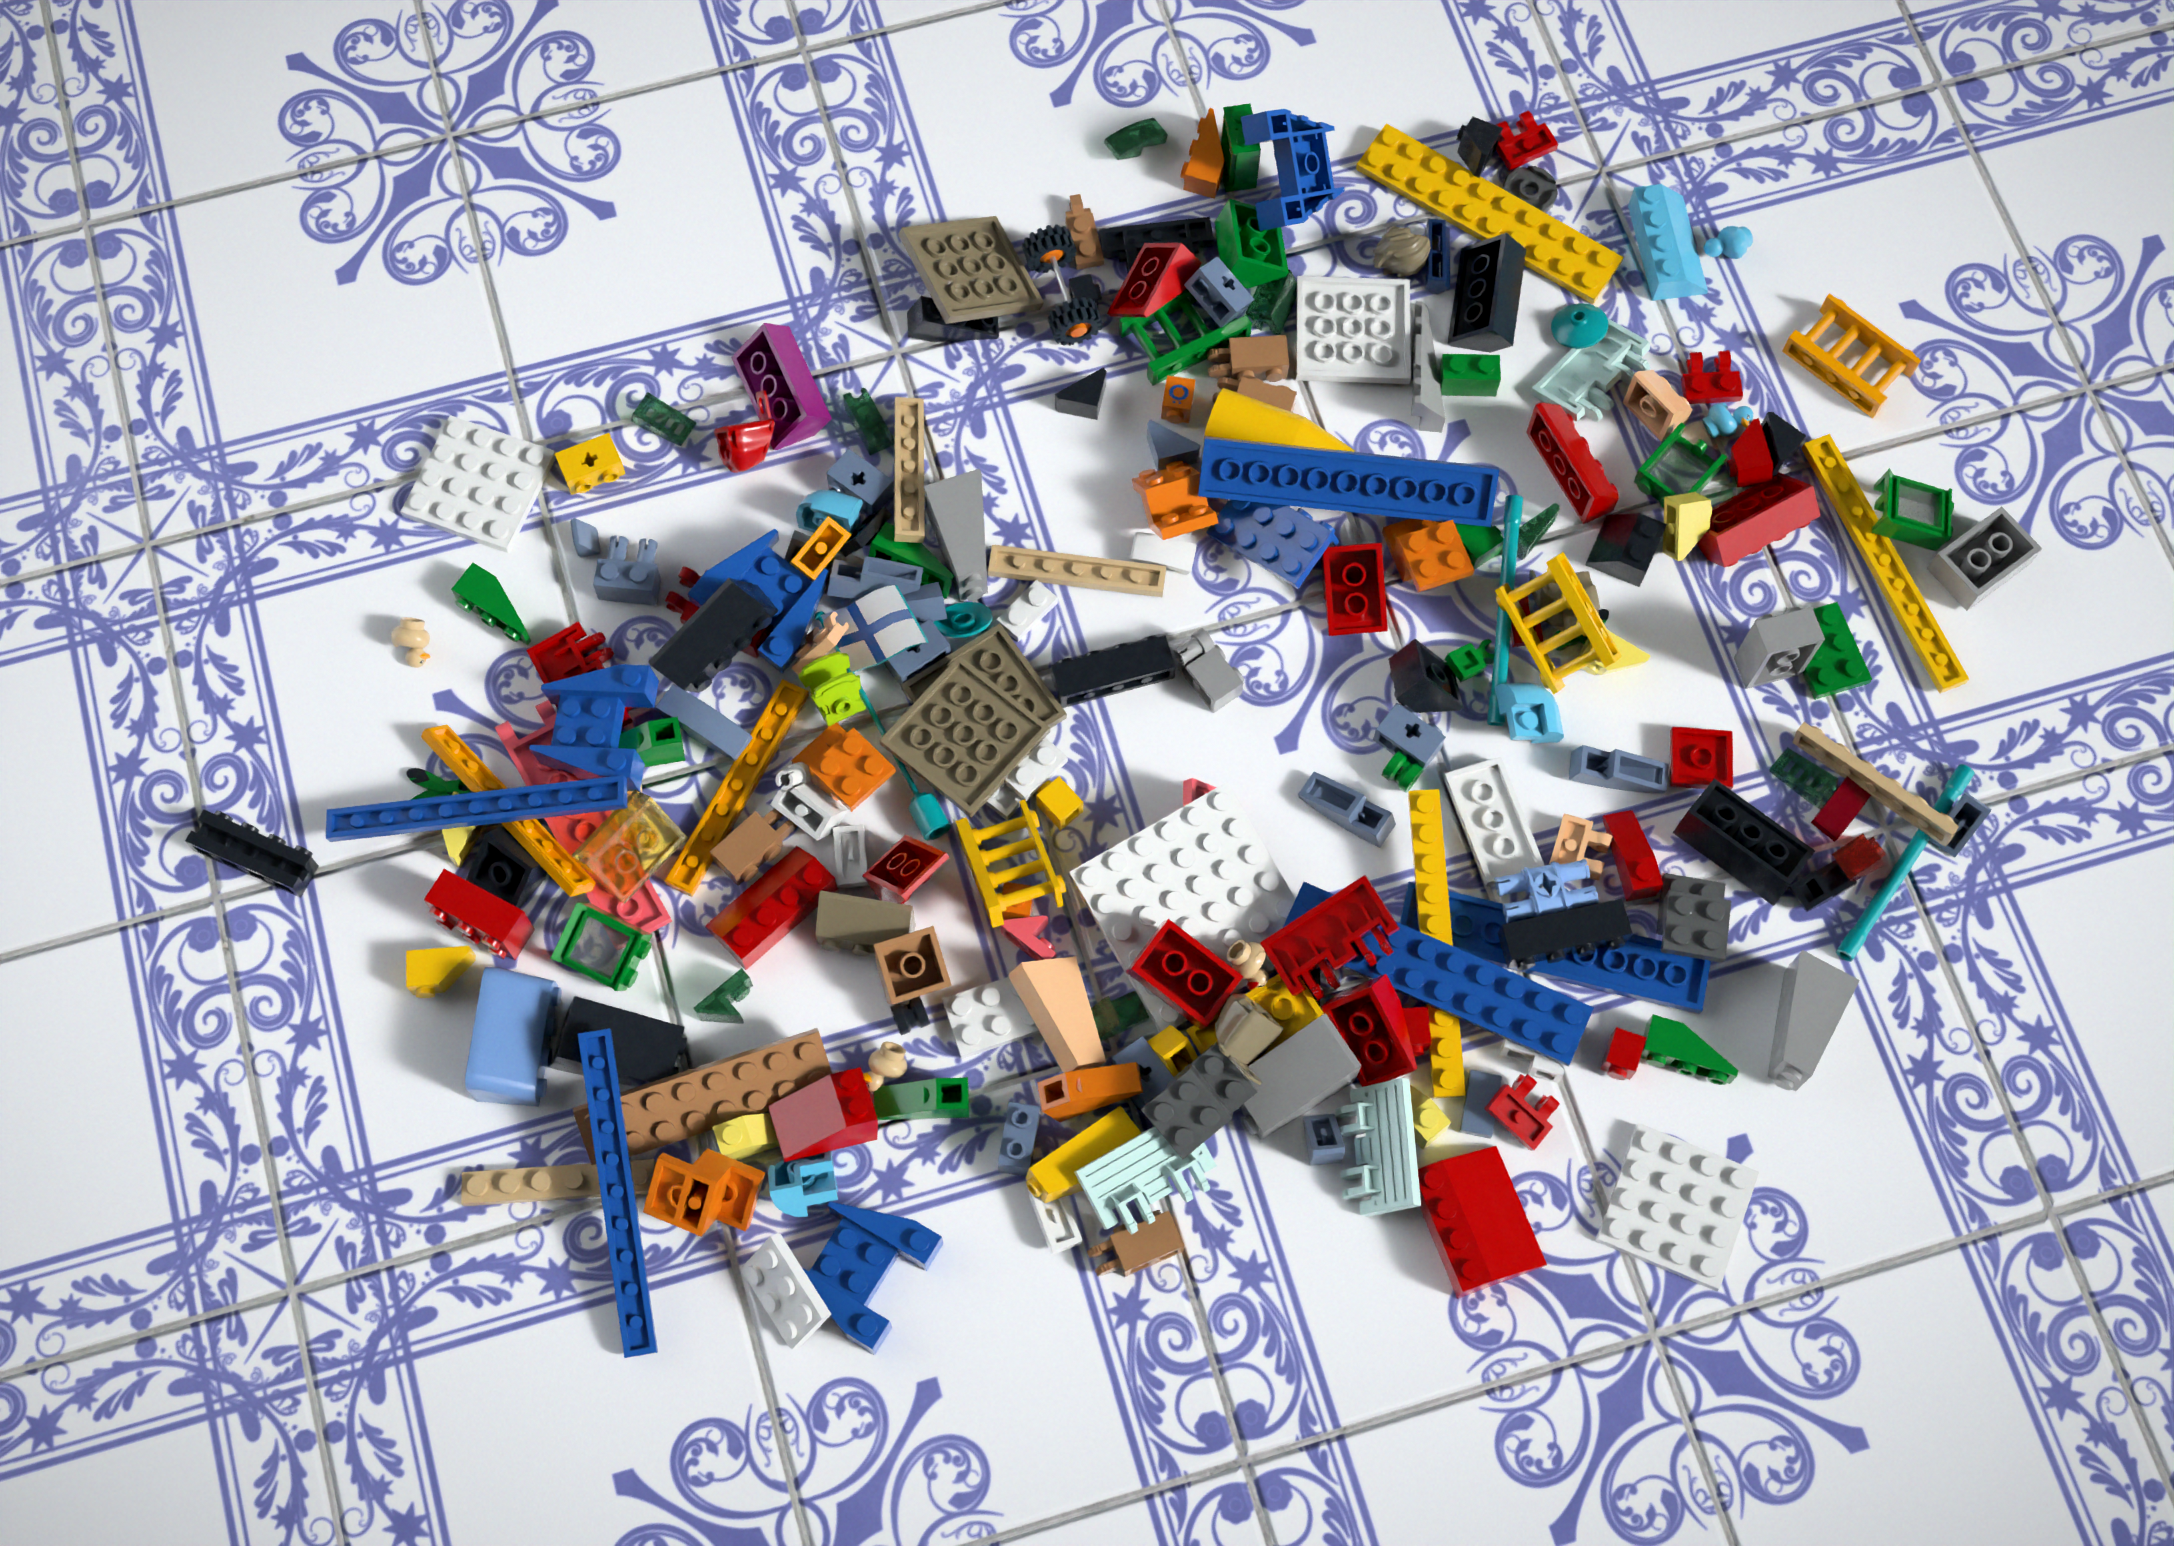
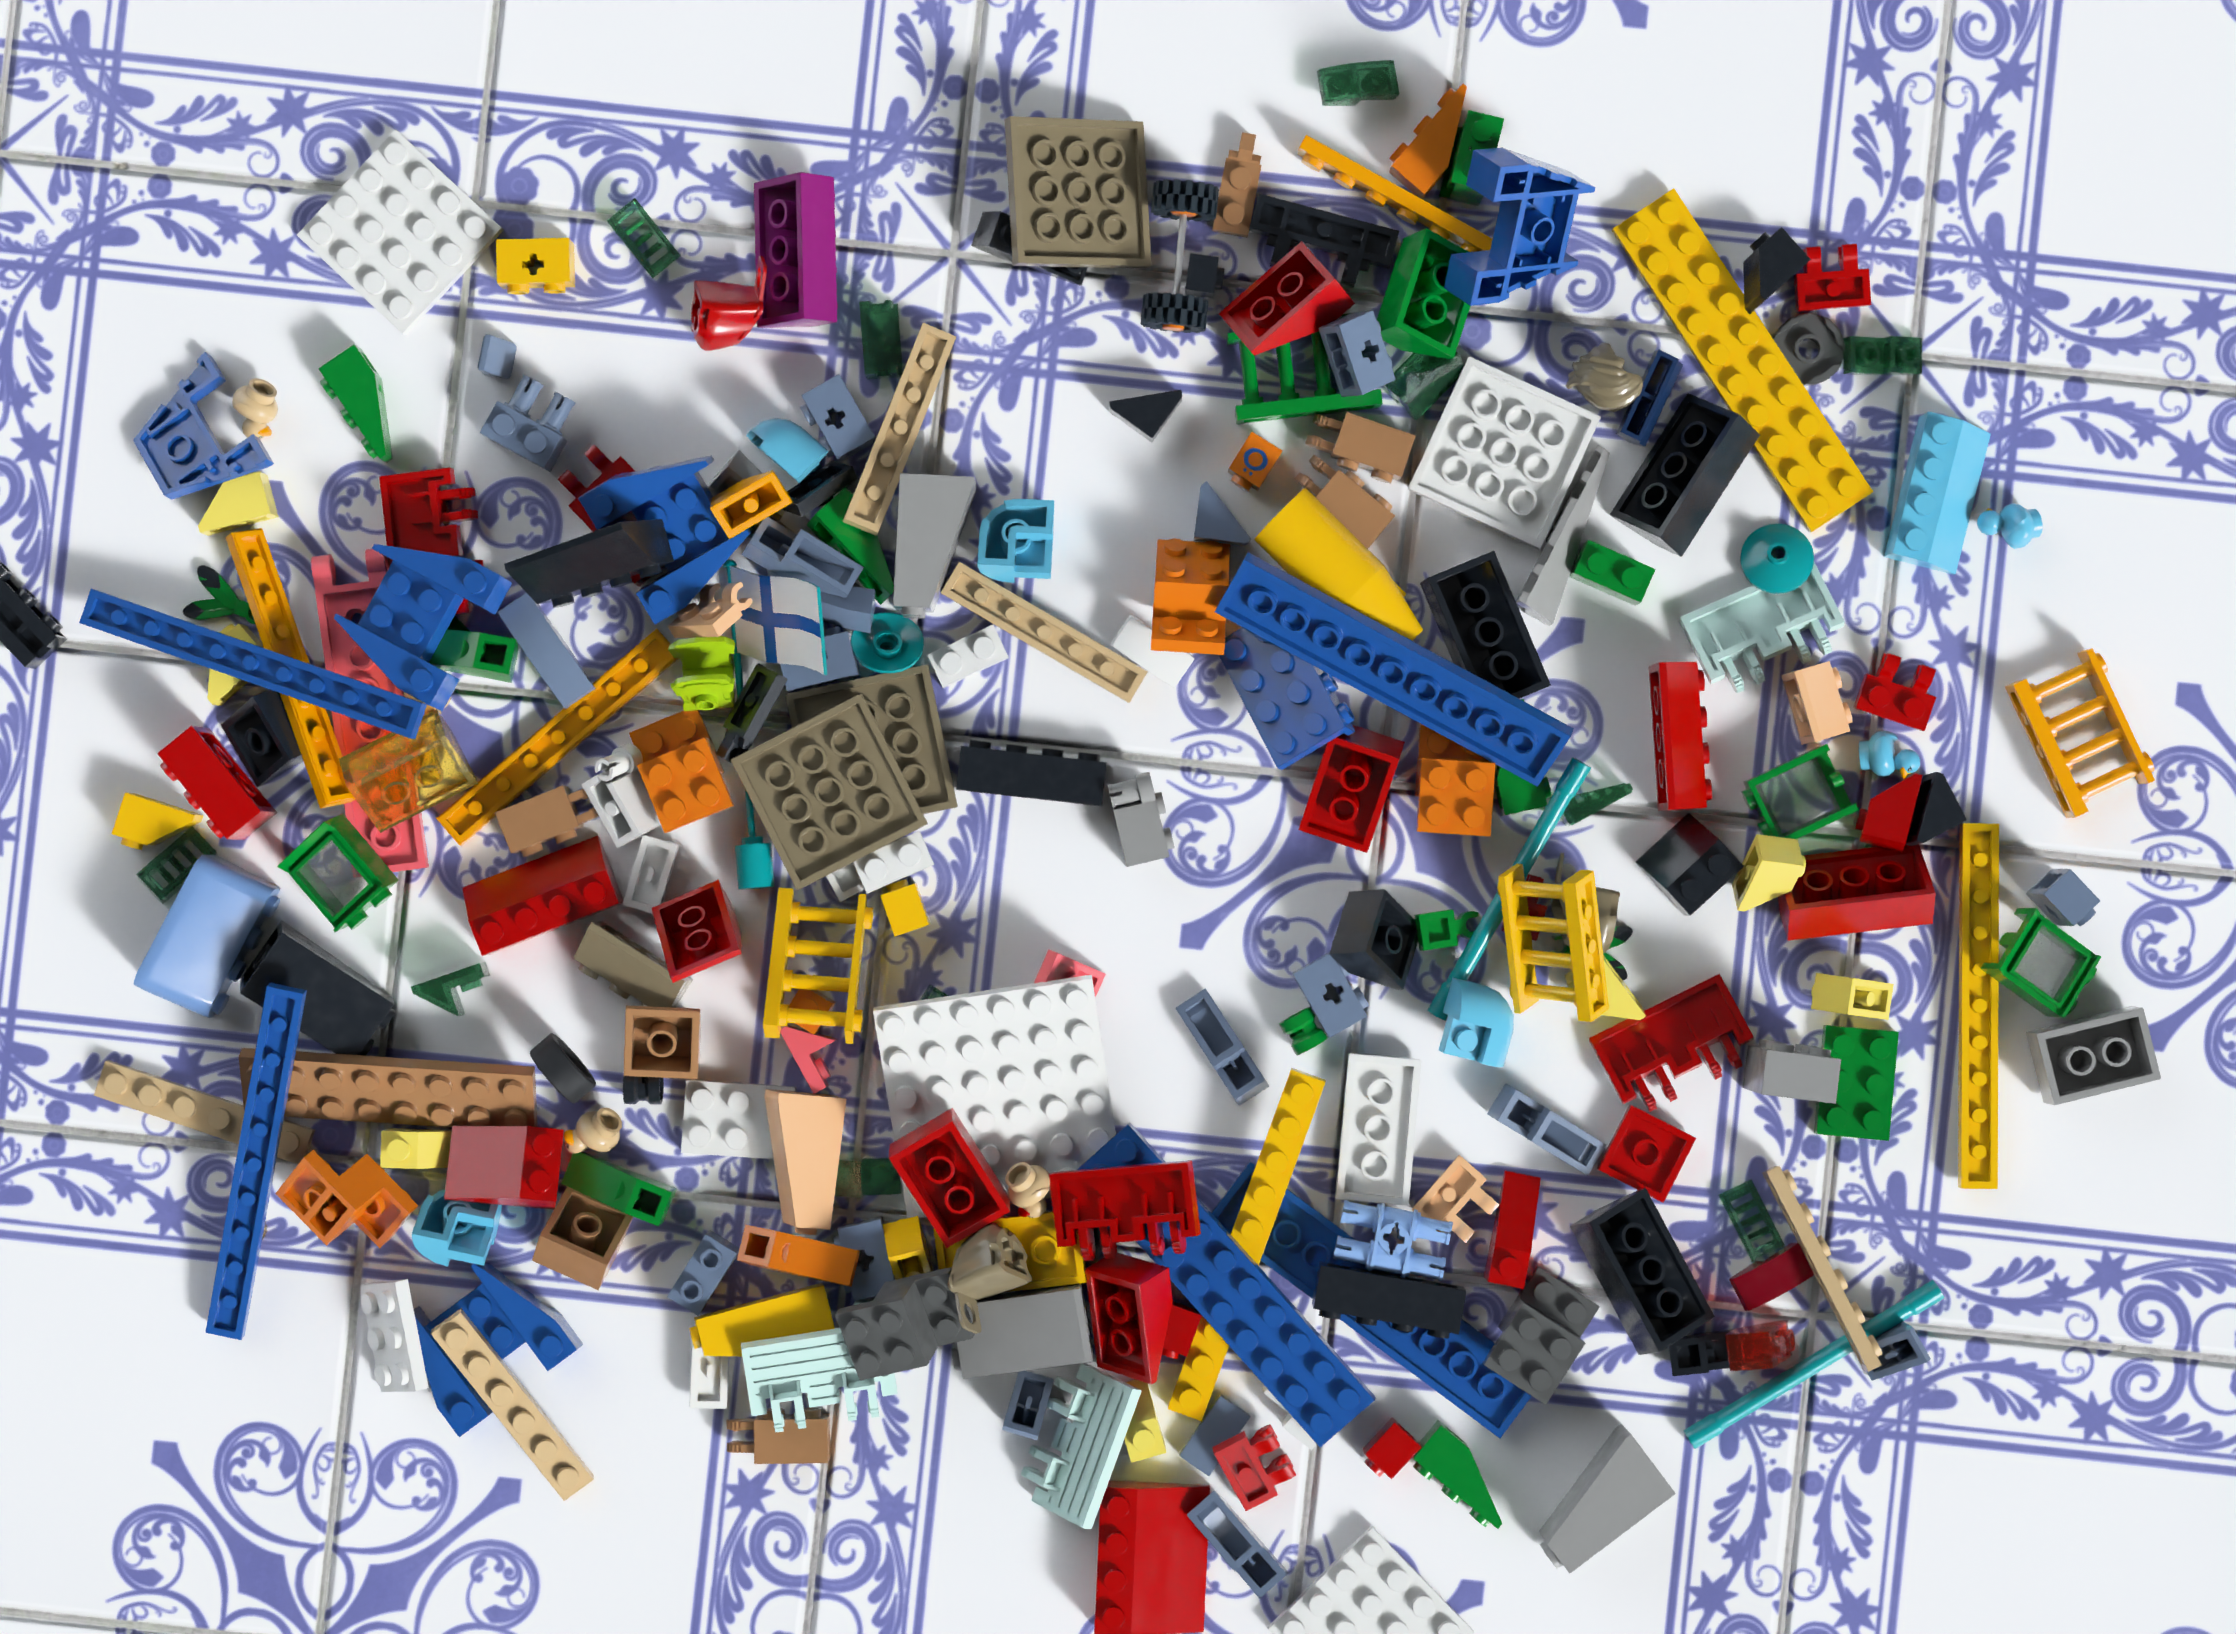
camera: 25 degrees right, 20 degrees up
(367, 687) = (182, 446): none -> wing
(423, 709) = (239, 504): none -> light yellow slope
(454, 1015) = (156, 865): none -> clear green slope
(840, 1022) = (562, 1068): none -> black tyre
(880, 702) = (750, 711): none -> black hinge
(906, 1307) = (512, 1404): none -> tan plate
(909, 1153) = (582, 1238): none -> medium nougat slope
(1030, 512) = (1017, 540): none -> medium azure brick
(1182, 196) = (1382, 192): none -> light orange plate
(1389, 428) = (1485, 625): none -> black slope
(1541, 1179) = (1237, 1544): none -> sand blue slope
(1586, 175) = (1882, 355): none -> clear green slope
(1677, 666) = (1670, 1038): none -> red hinge
(1789, 589) = (1851, 996): none -> light yellow slope
(1905, 456) = (2064, 898): none -> sand blue brick

